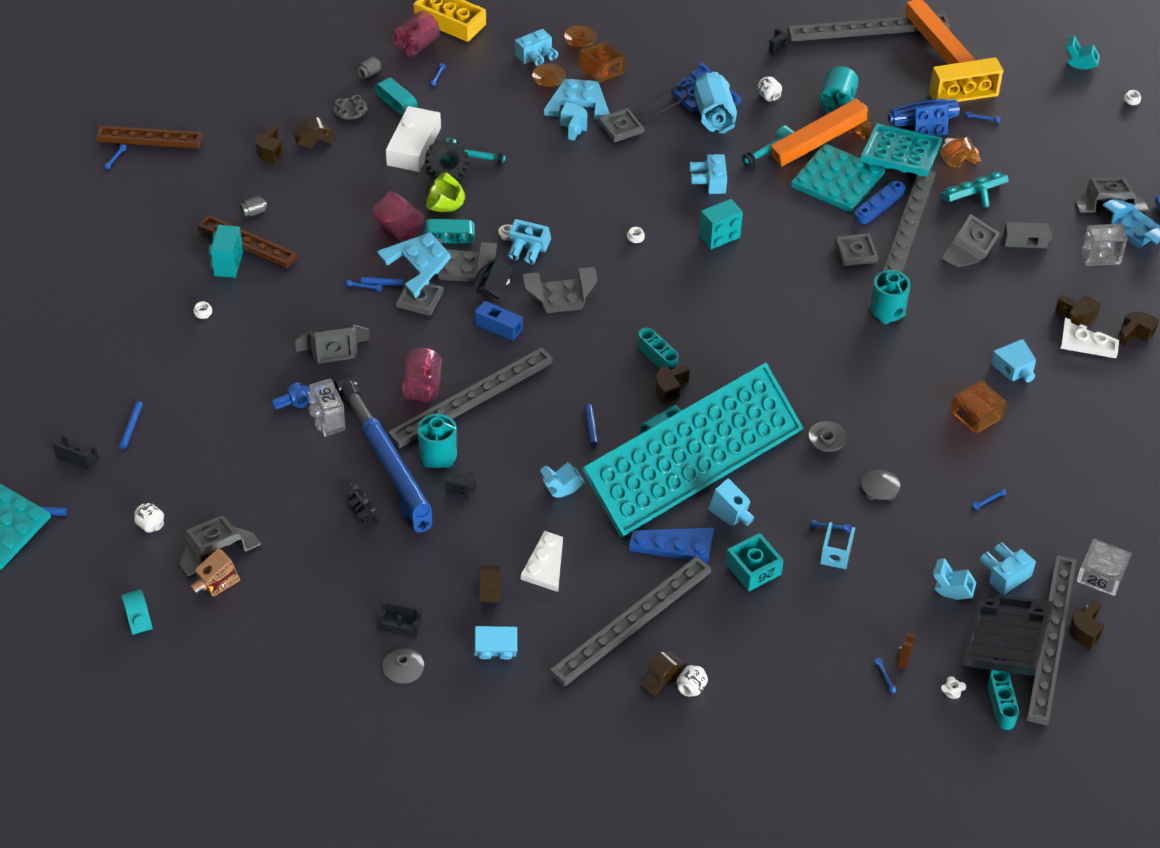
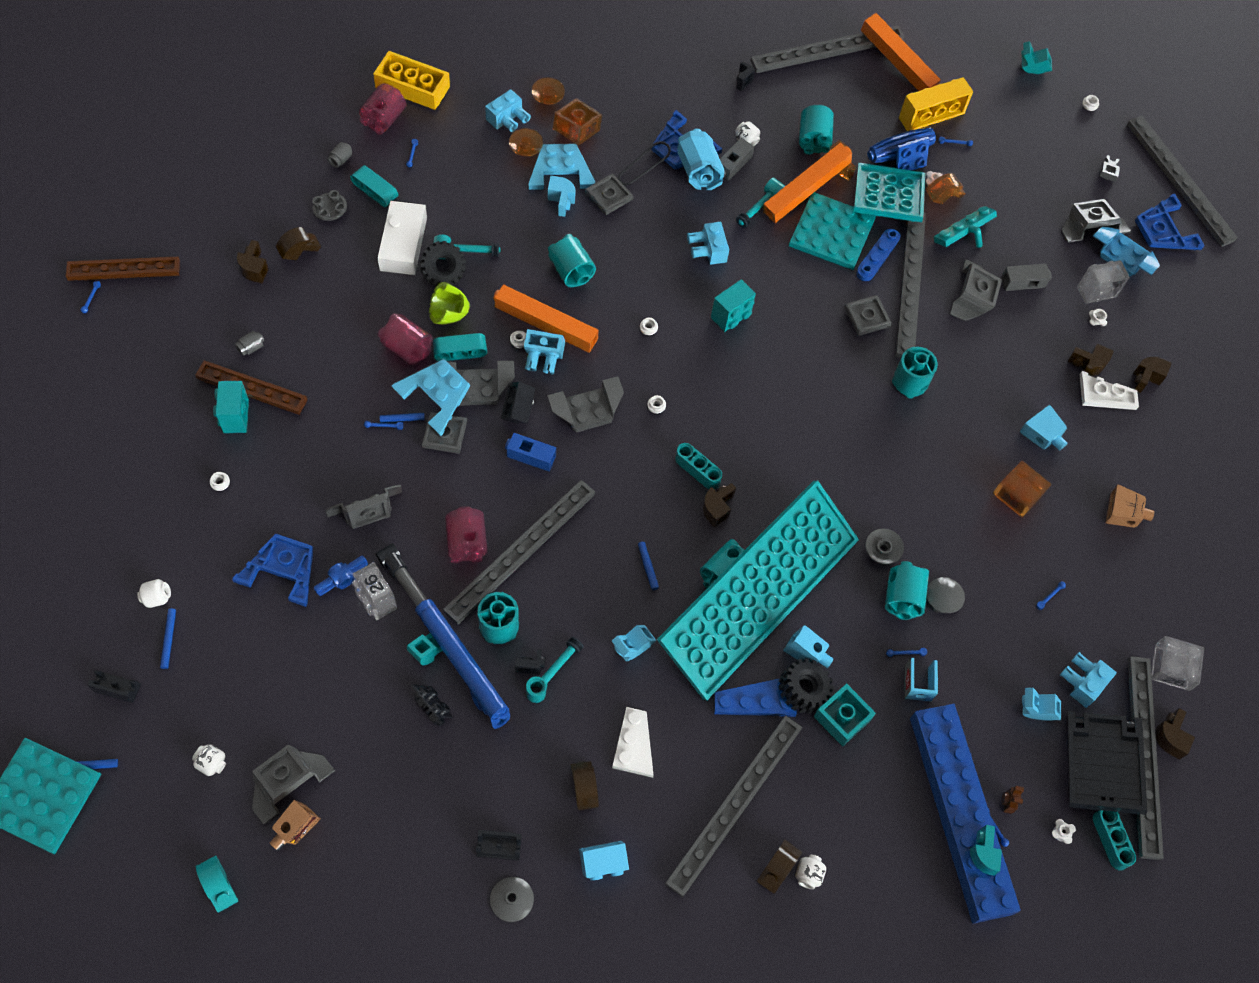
camera: 15 degrees left, 15 degrees up
(125, 386) = (154, 593): none -> white head
(249, 376) = (284, 559): none -> blue wing
(363, 459) = (424, 649): none -> teal brick
(463, 501) = (573, 646): none -> teal piece
(524, 209) = (545, 318): none -> orange brick
(571, 172) = (571, 261): none -> teal cylinder
(629, 297) = (656, 400): none -> white plate
(721, 523) = (814, 677): none -> black tyre
(753, 108) = (736, 158): none -> dark grey brick
(839, 471) = (907, 591): none -> teal cylinder
(855, 658) = (962, 810): none -> blue brick
(863, 679) = (984, 855): none -> teal brick
(1084, 436) = (1127, 508): none -> medium nougat torso
(1094, 277) = (1098, 317): none -> white plate
(1138, 155) = (1109, 169): none -> dark grey plate

